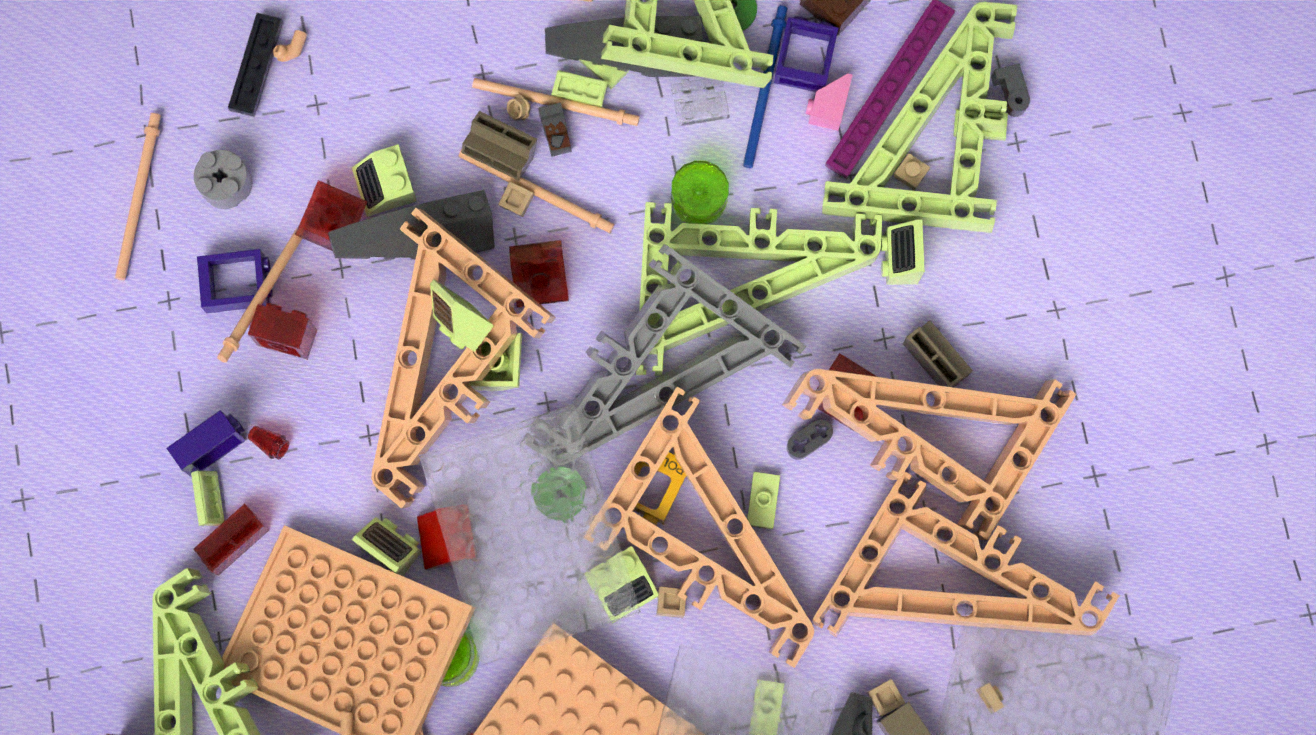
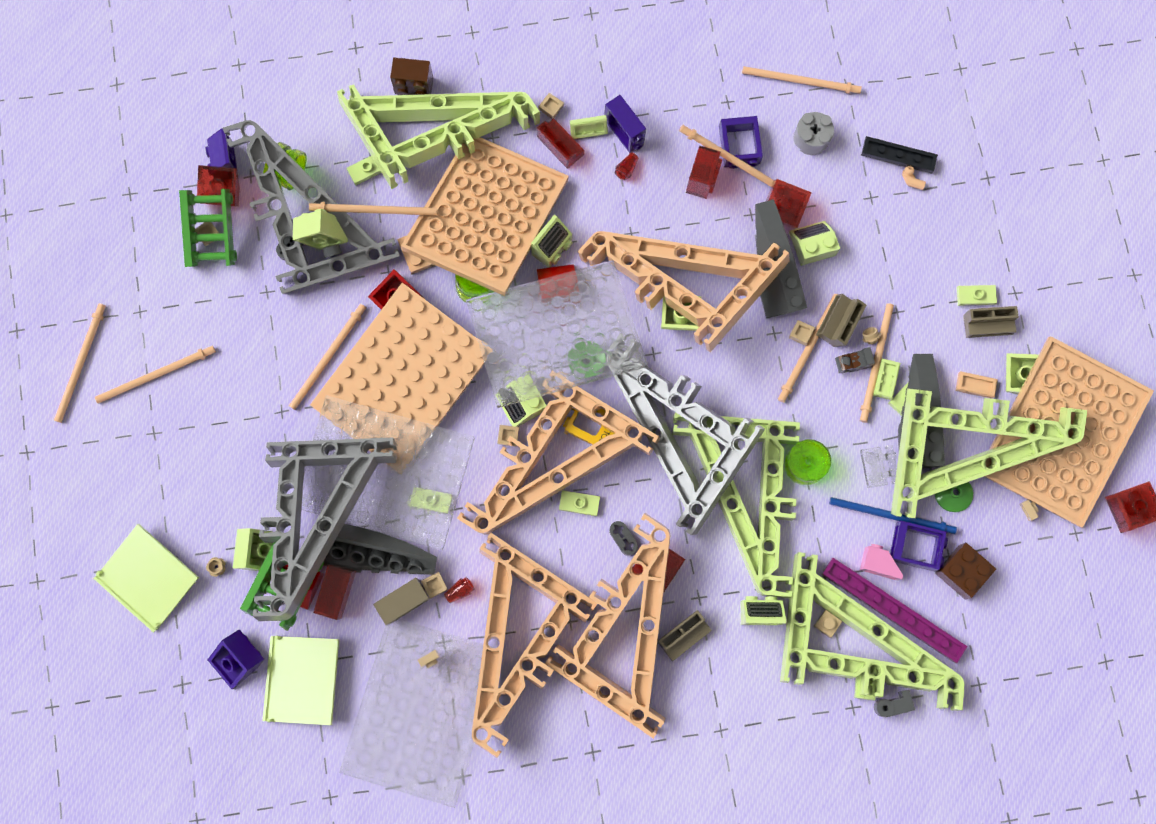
camera: 90 degrees right, 0 degrees up
(172, 554) = (551, 105): none -> tan plate
(458, 318) = (709, 283): yellowish green slope -> none
(539, 271) = (747, 347): clear red slope -> none
(891, 662) = (459, 590): none -> clear red cone

